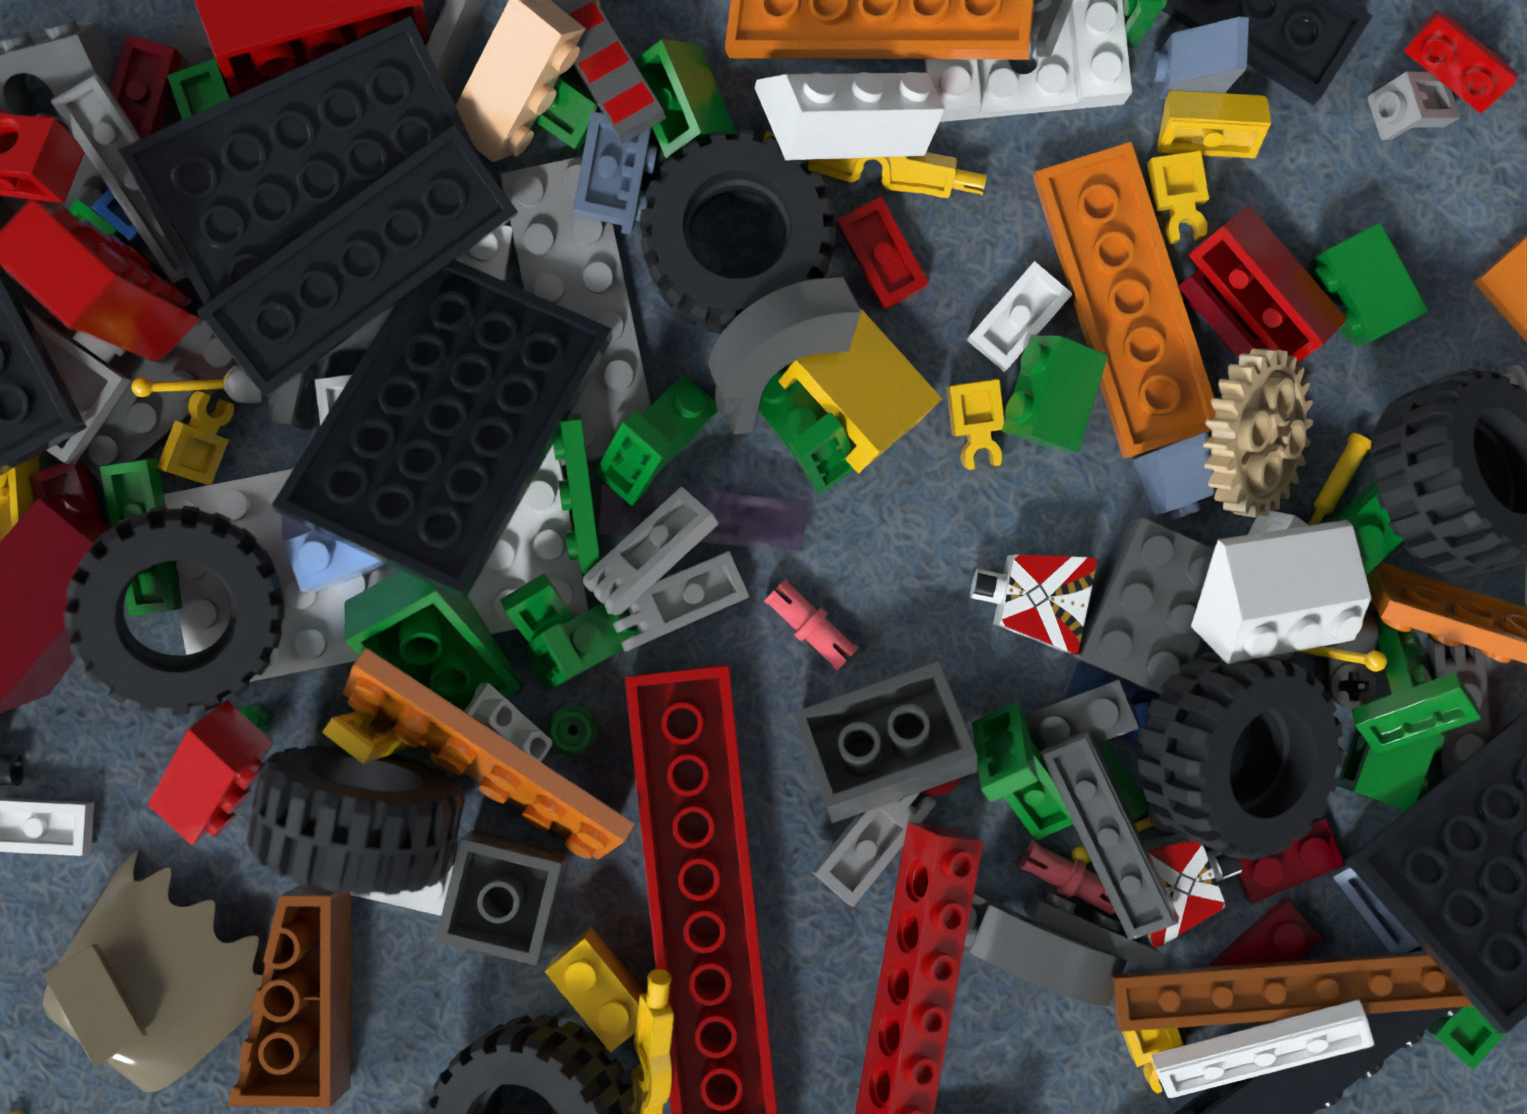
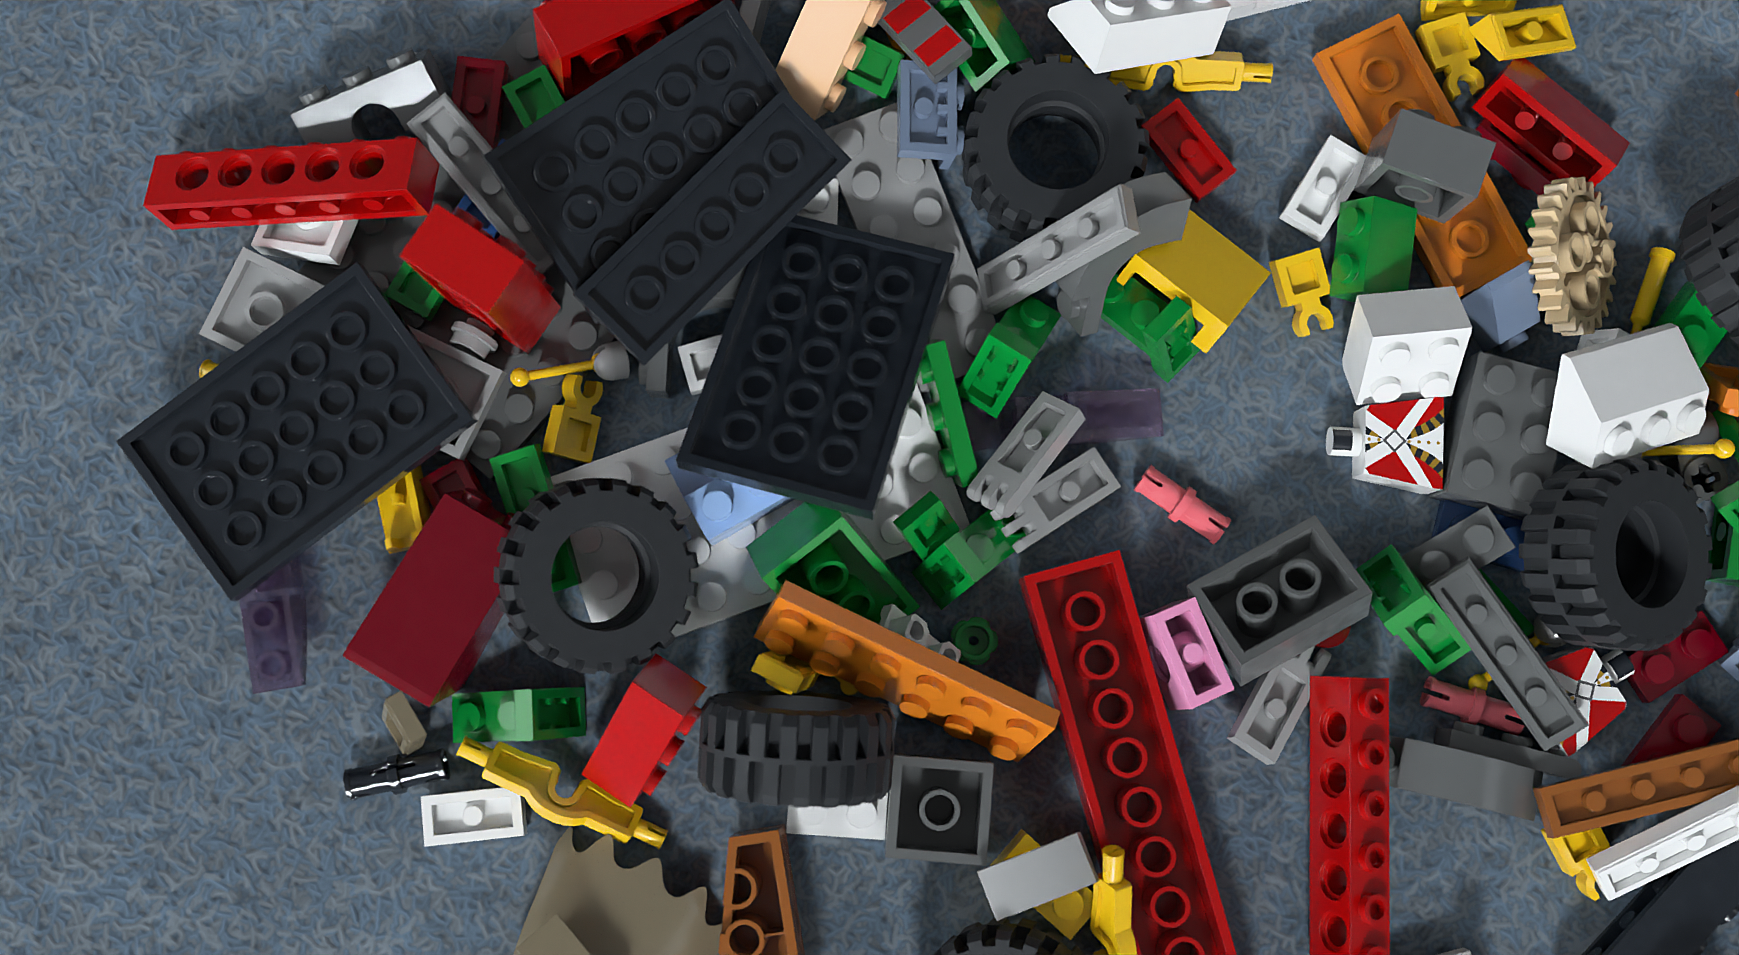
camera: 10 degrees left, 5 degrees down
(98, 735) = (519, 714): none -> green bracket
(104, 802) = (536, 781): none -> yellow piece
(583, 987) = (1038, 876): none -> light grey slope
(717, 342) = (1059, 249): none -> light grey tile
(779, 781) = (1184, 655): none -> bright pink brick
(1067, 498) = (1405, 345): none -> white brick
(1121, 311) = (1426, 164): none -> dark grey brick
(1259, 184) = (1525, 32): none -> yellow slope
(1368, 285) = (1643, 109): green brick -> none

